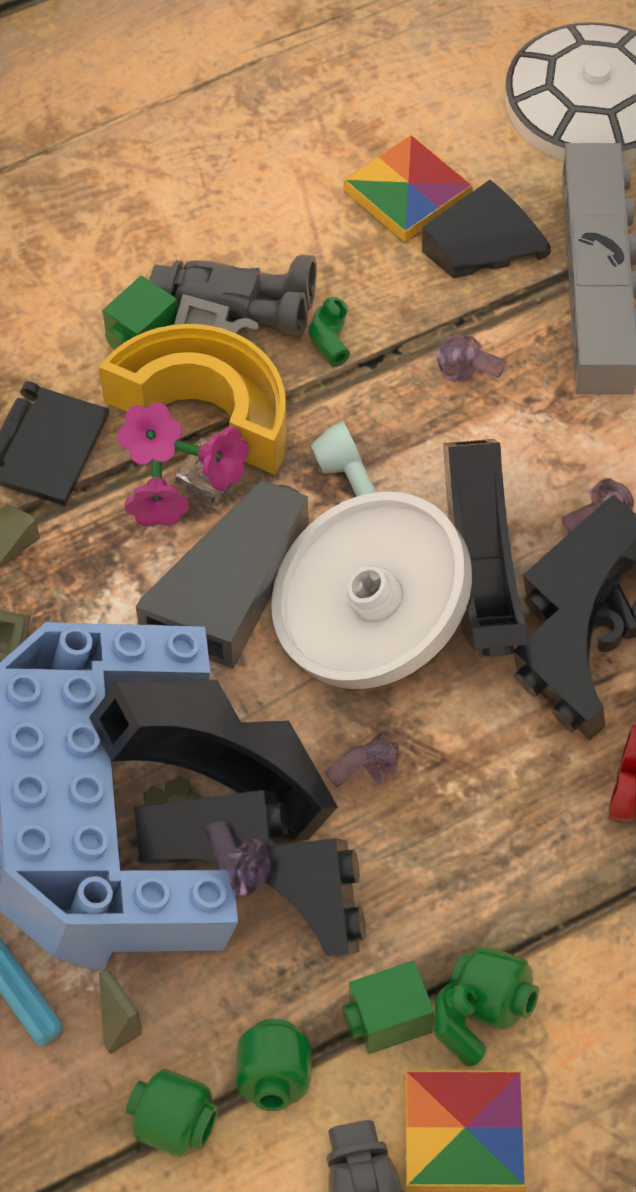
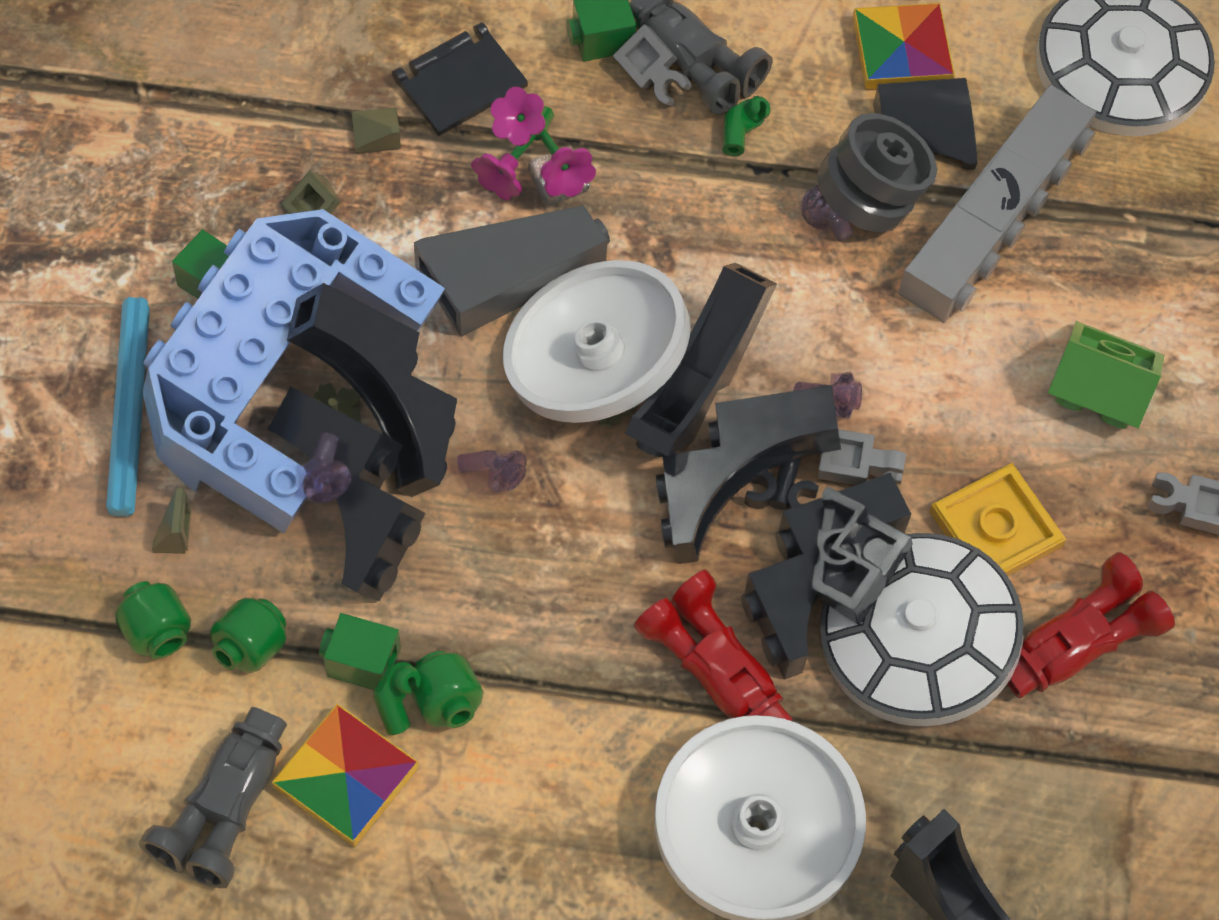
camera: 30 degrees right, 5 degrees up
(209, 367) = (615, 87): yellow brick -> none
(337, 453) = (670, 223): light aqua bar -> none
(489, 298) = (876, 172): none -> dark grey wheel

